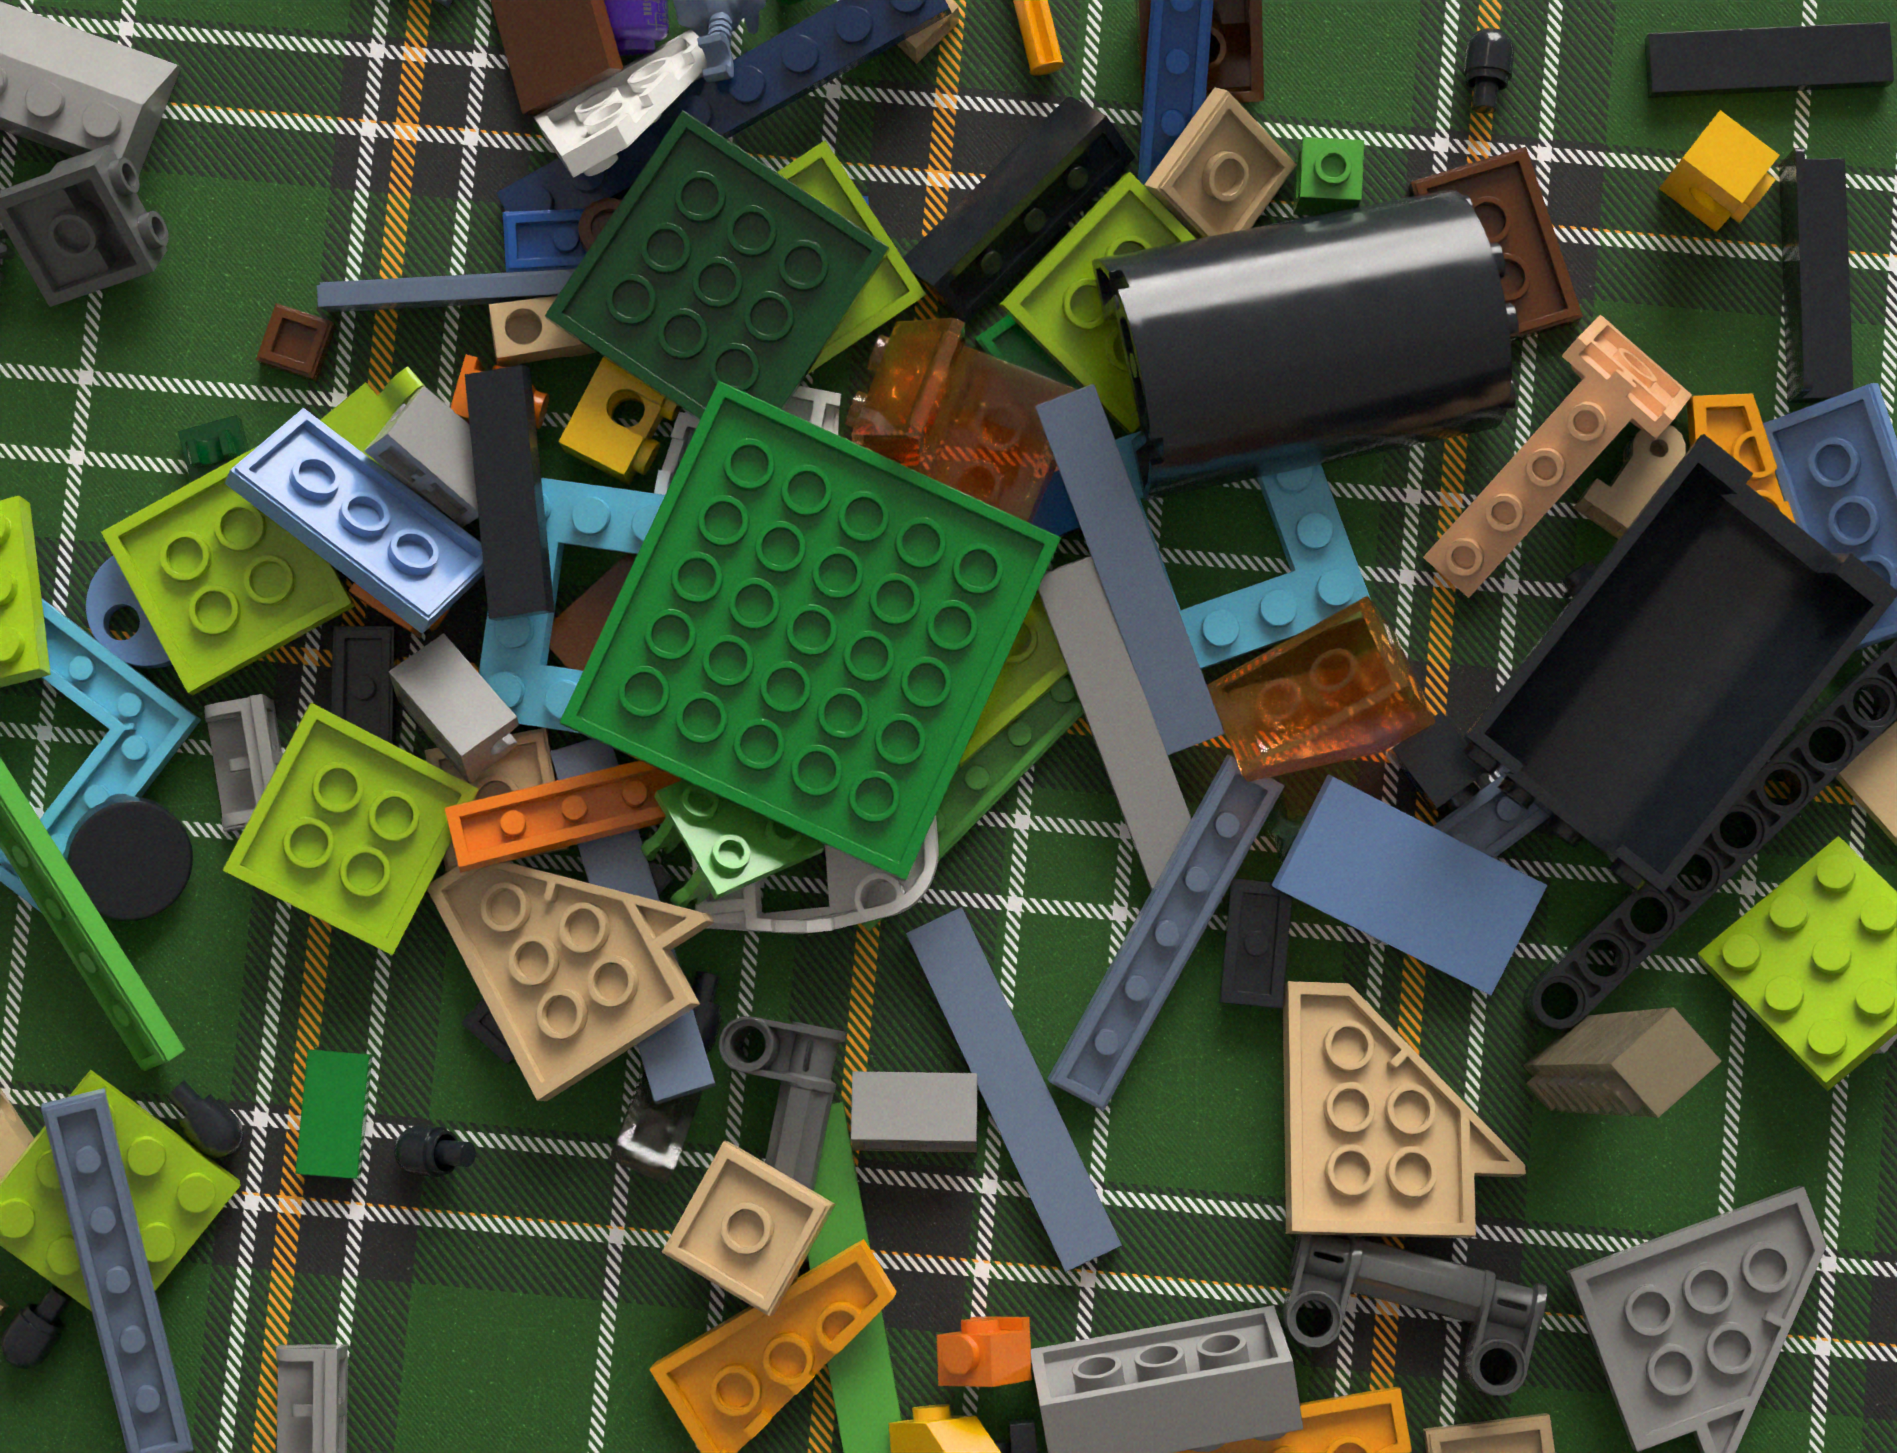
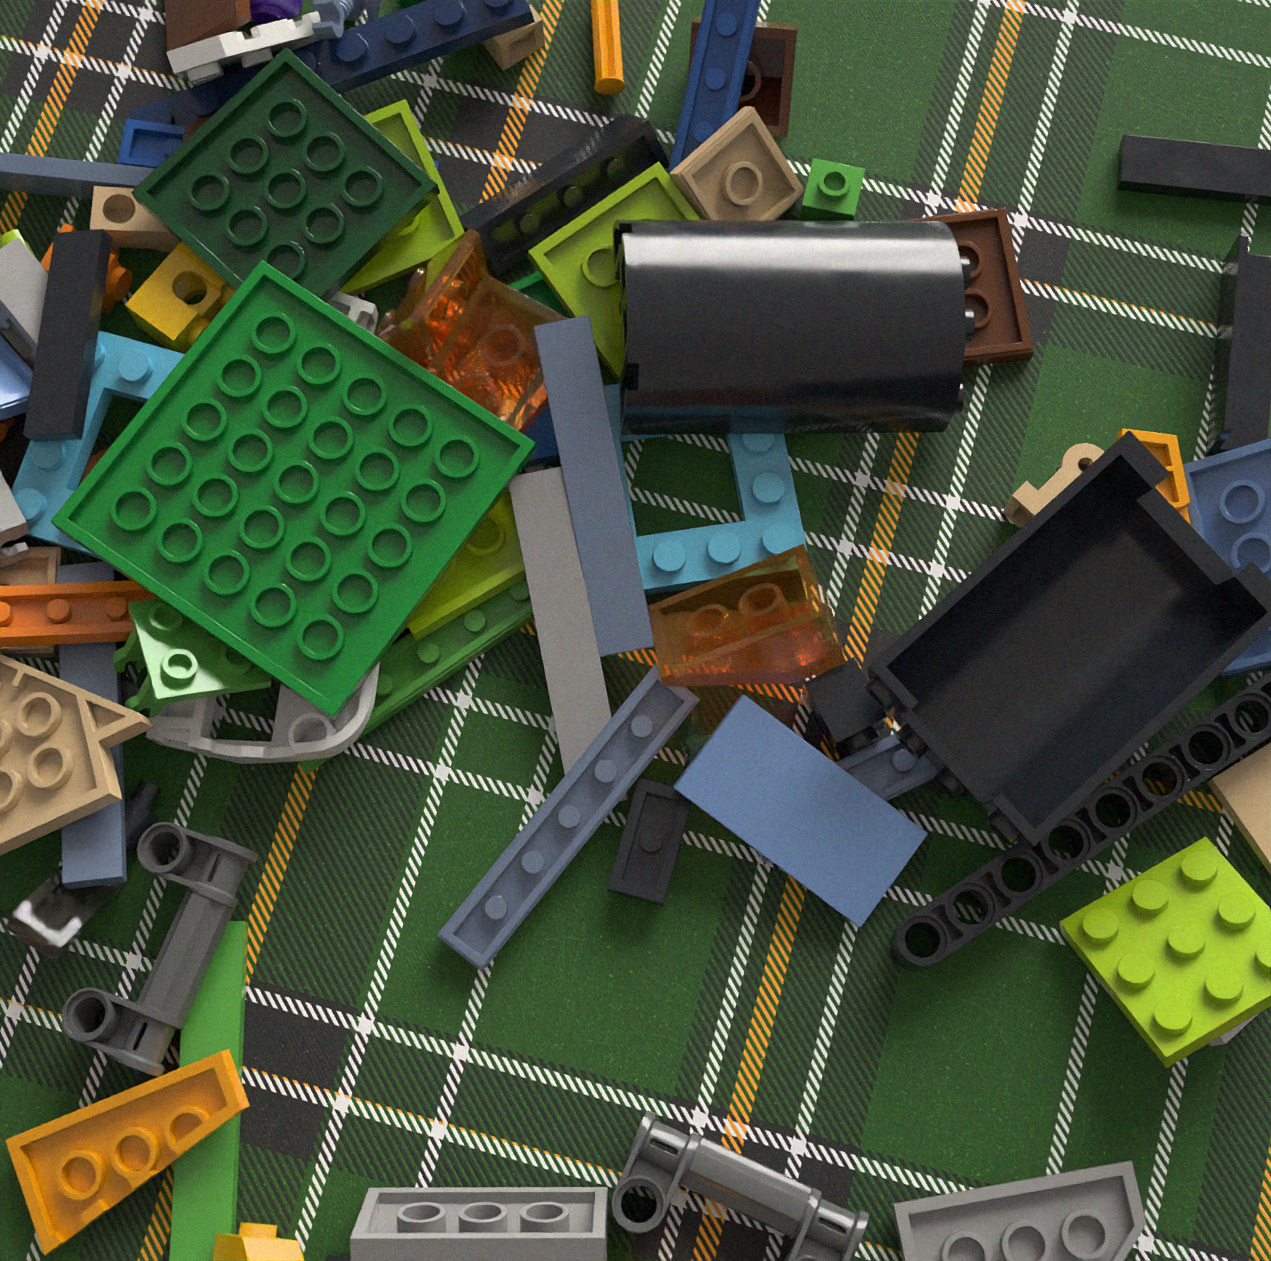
camera: 10 degrees right, 10 degrees down
(748, 1228) = (119, 1017): tan tile -> none
(914, 1111) = (306, 941): light grey hinge -> none
(985, 1352) = (320, 1180): orange brick -> none
(1013, 1089) = (404, 941): sand blue tile -> none
(1373, 1128) = (729, 1034): tan wing -> none
(1488, 67) = (982, 141): black cylinder -> none
(1615, 388) = (988, 454): light nougat bracket -> none
(1621, 1064) = (971, 980): dark tan brick -> none
(1722, 173) = (1172, 243): yellow brick -> none

